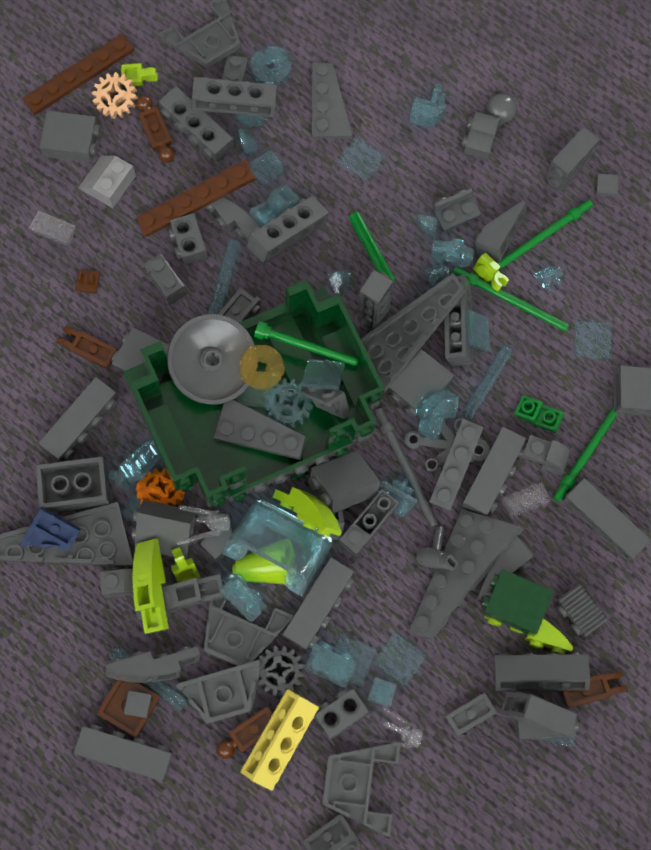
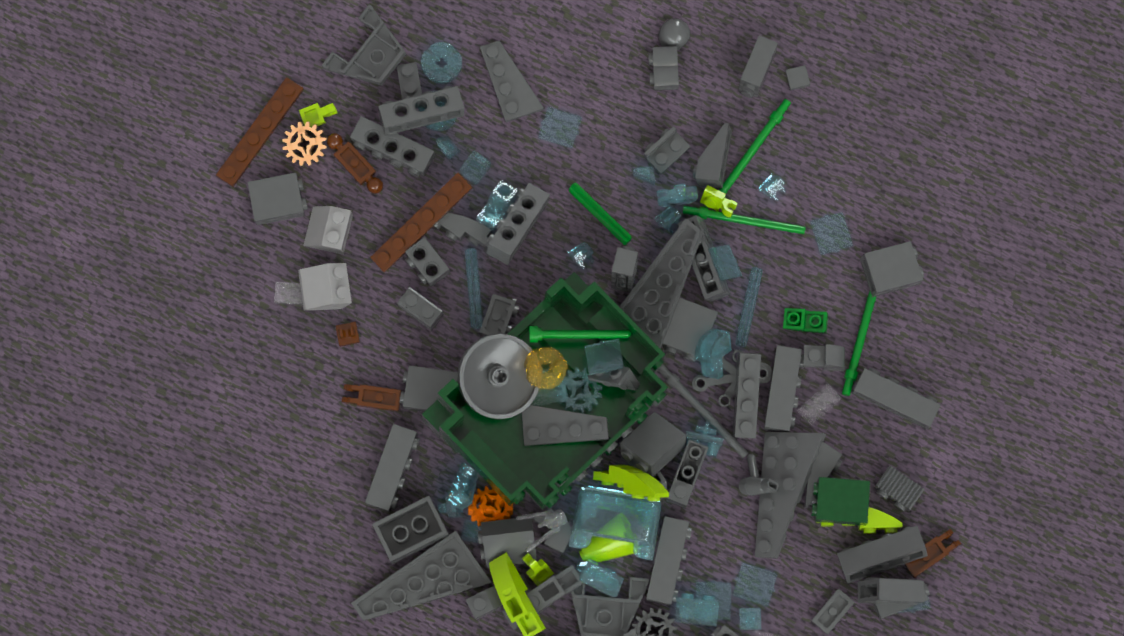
camera: 15 degrees left, 5 degrees up
(50, 531) = (407, 578): dark blue wing -> none
(81, 228) = (325, 287): none -> light grey slope
(429, 113) = (607, 62): clear light blue brick -> none

